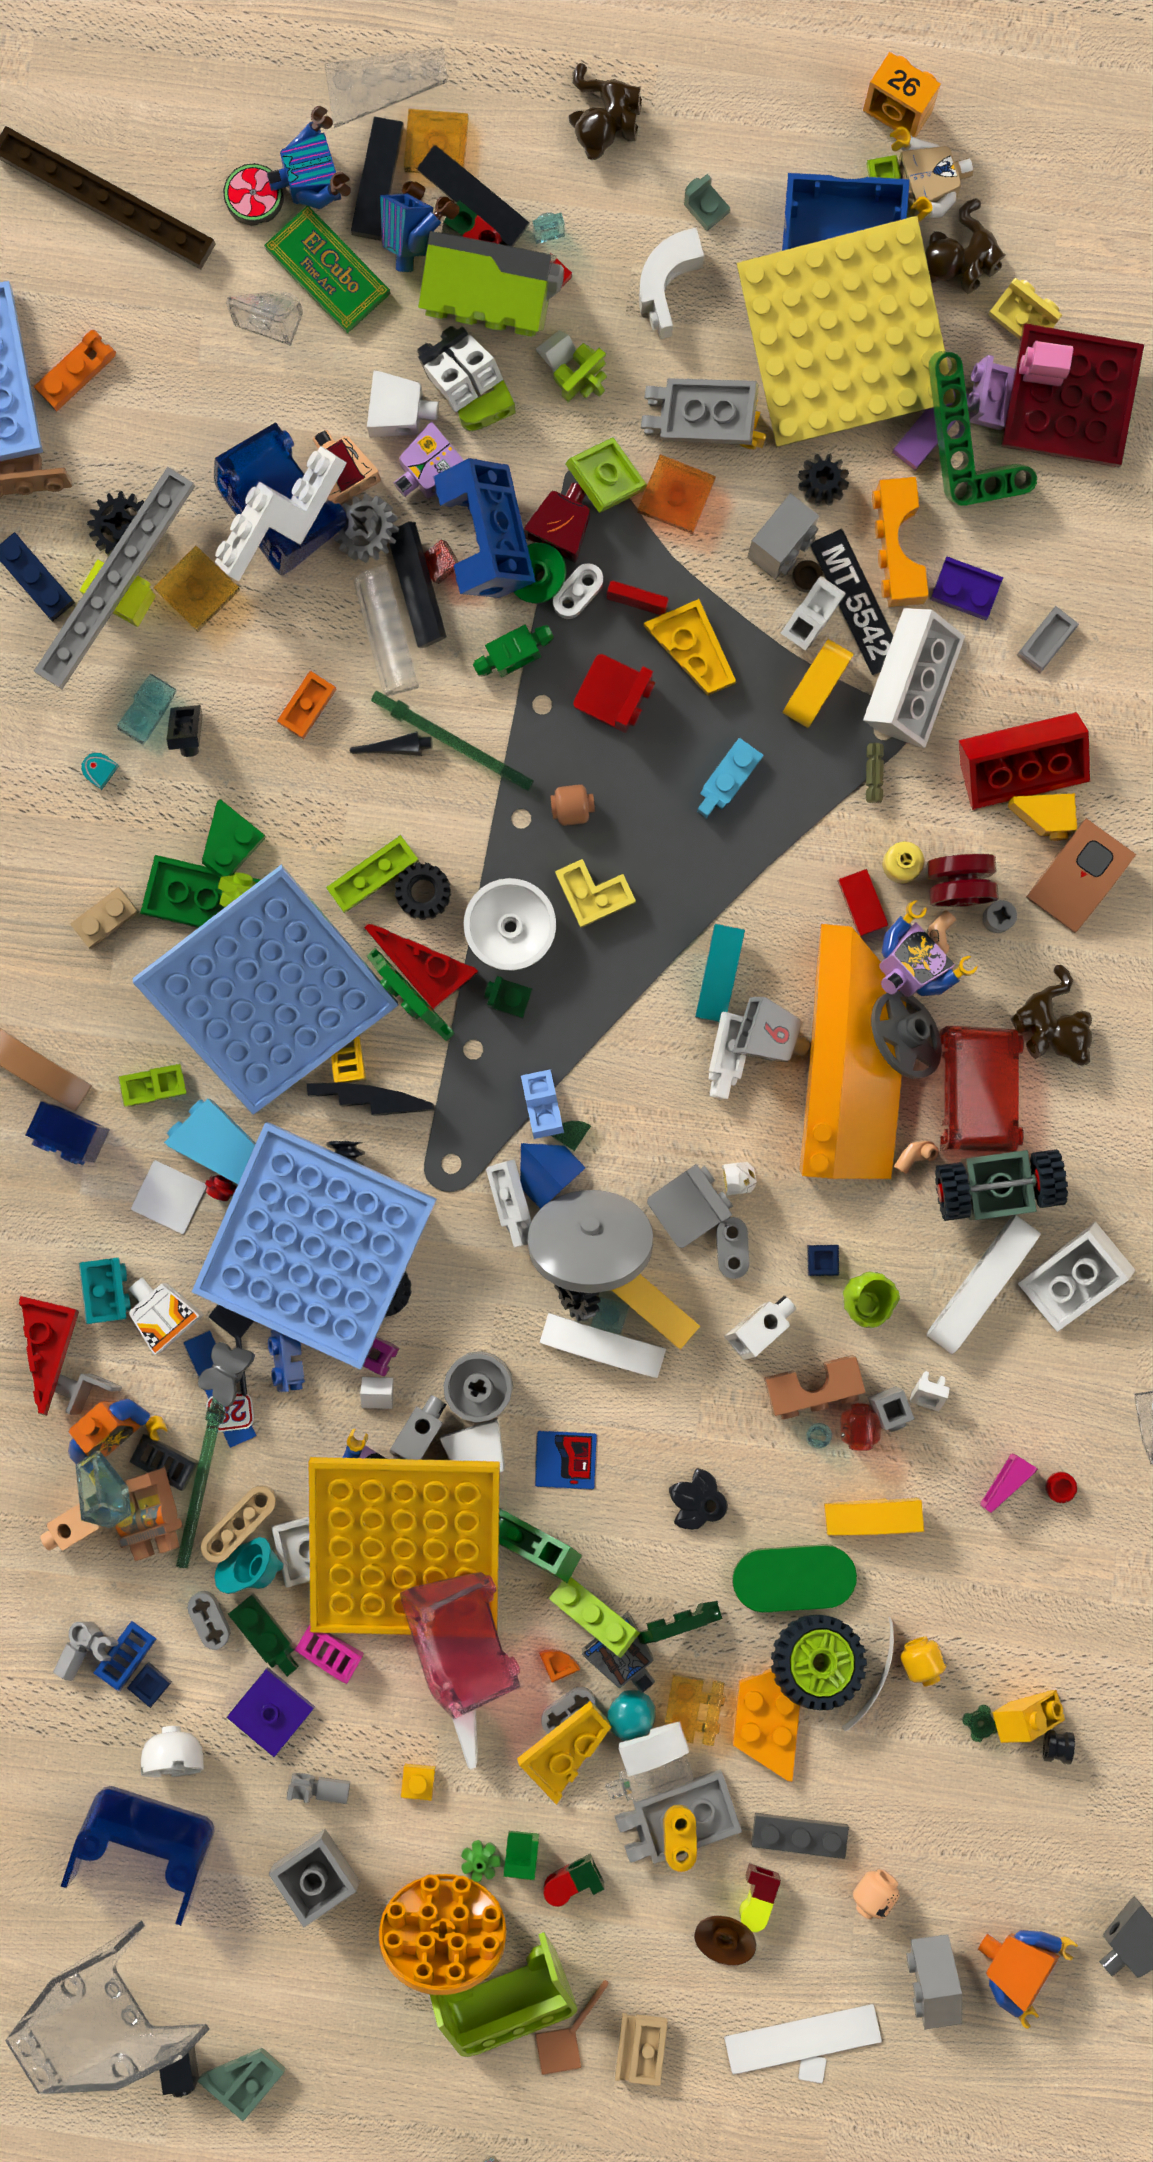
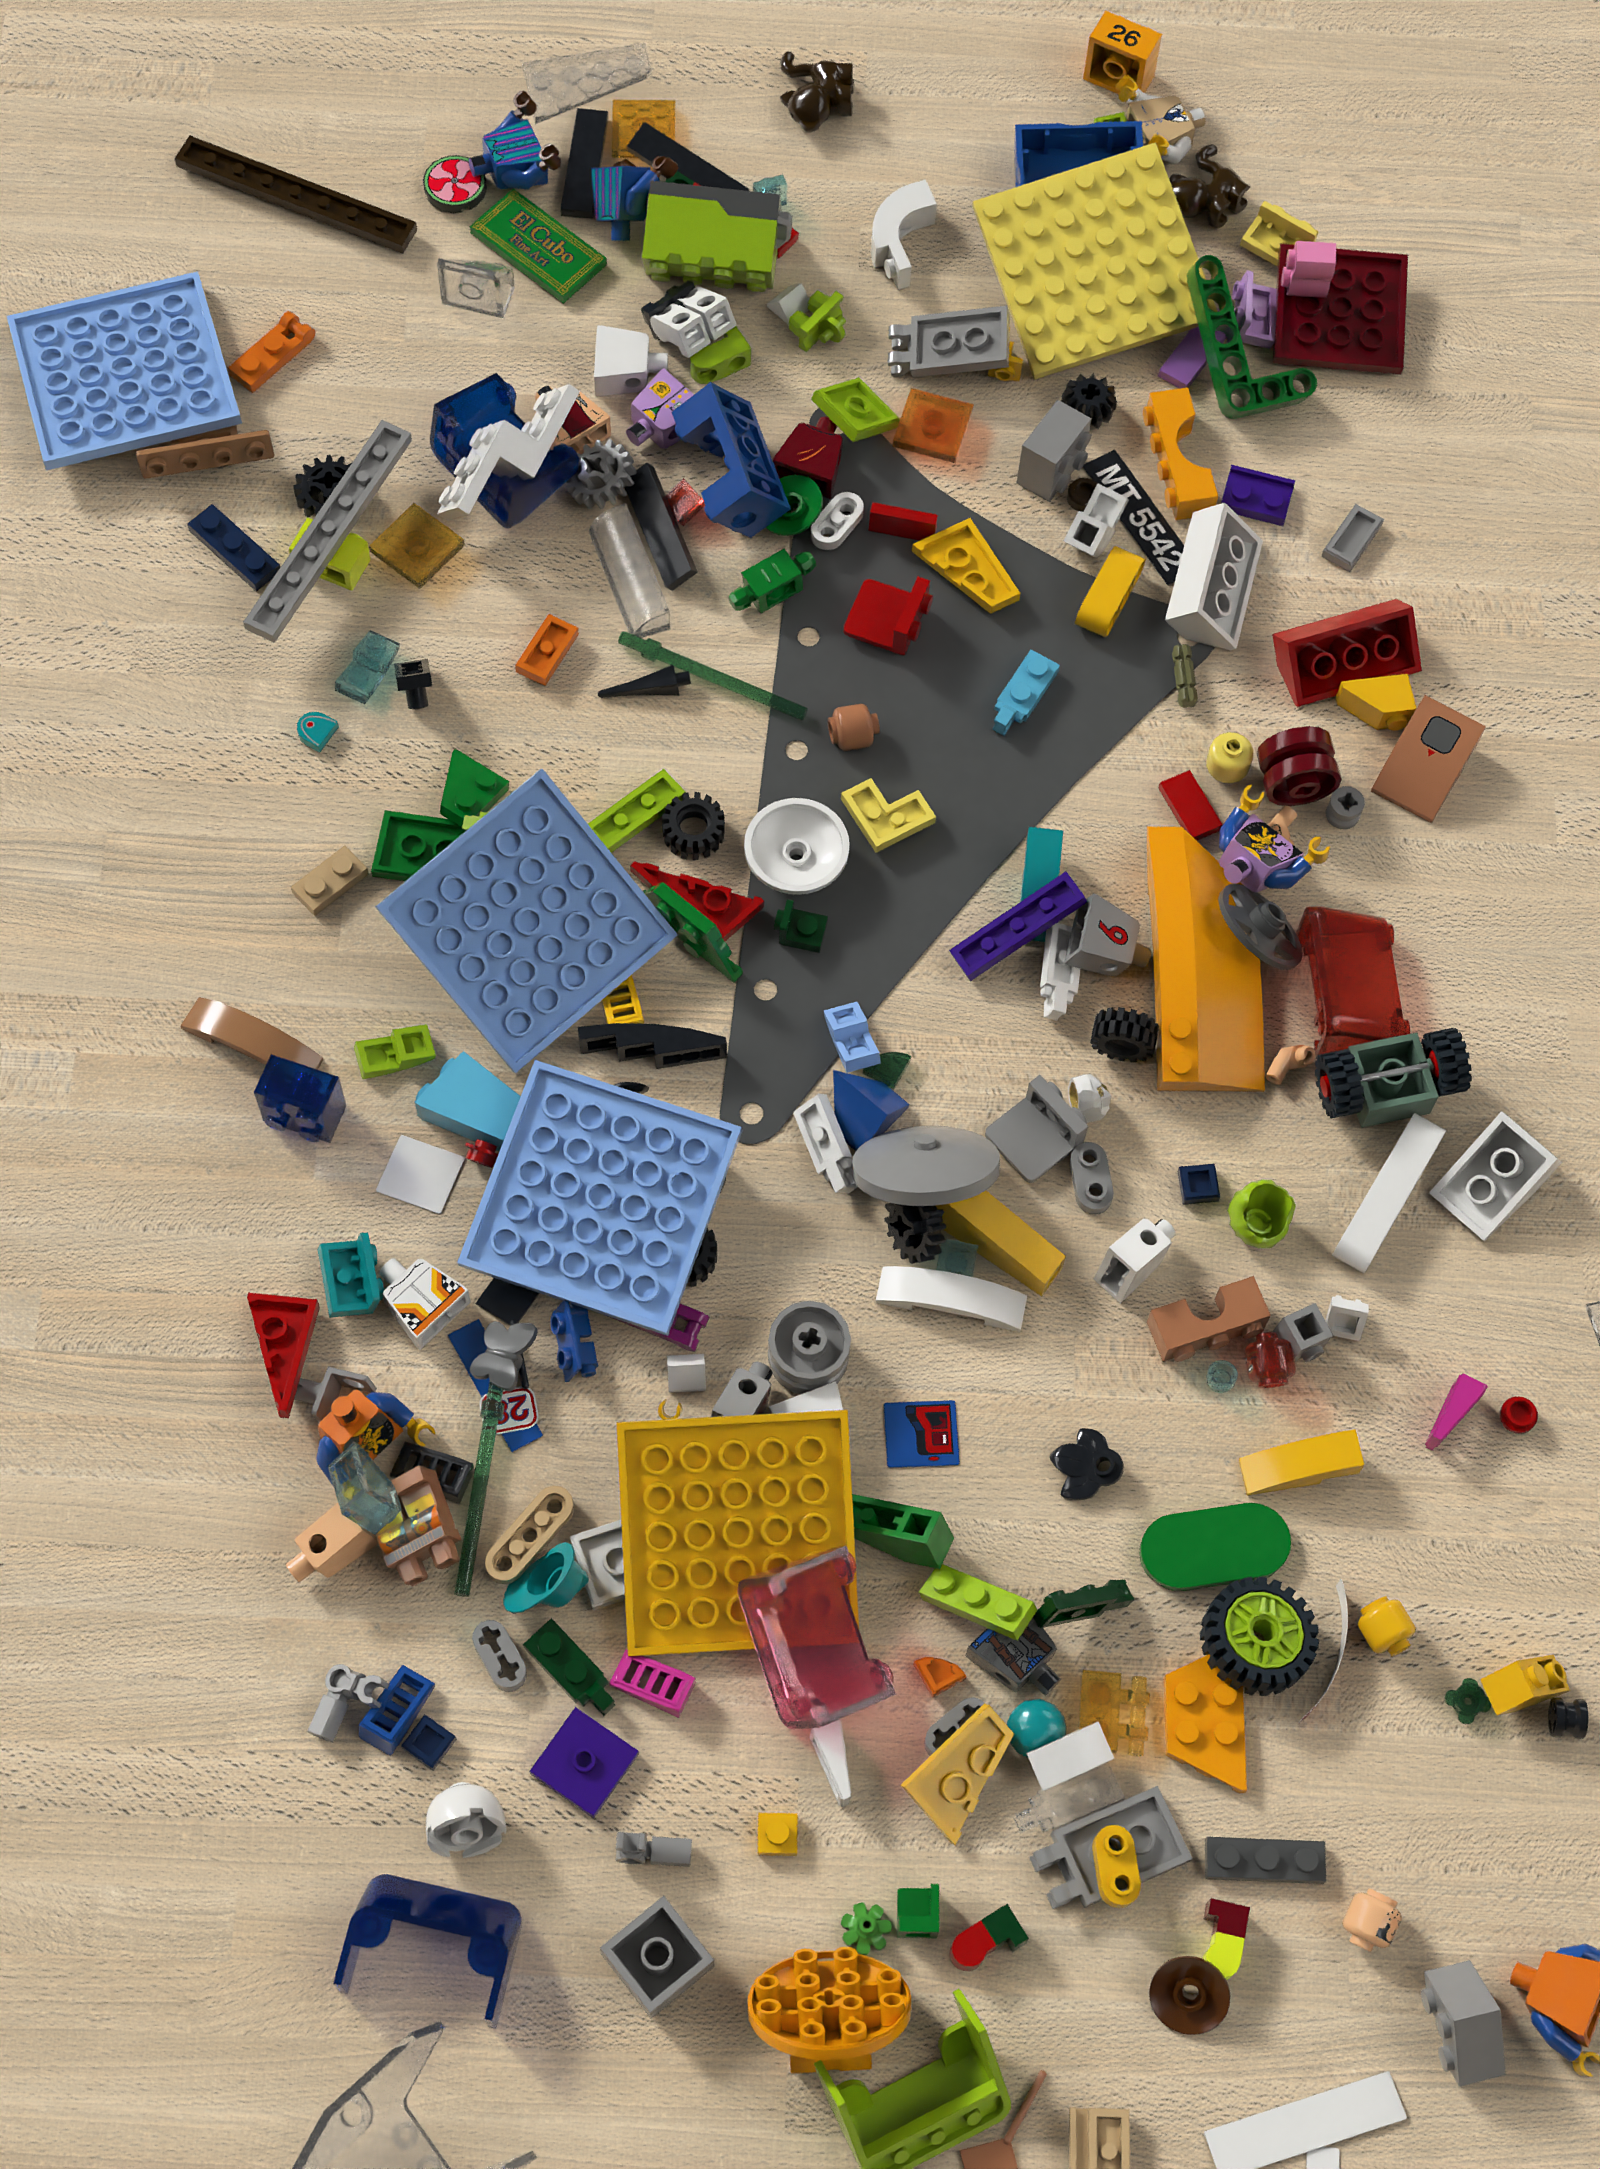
camera: 10 degrees left, 20 degrees down
(695, 1015) = (1018, 926): none -> dark purple plate
(705, 202) = (930, 163): sand green bracket -> none
(775, 1126) = (1124, 1034): none -> black tyre
(1067, 1035) = (1439, 920): dark brown animal -> none

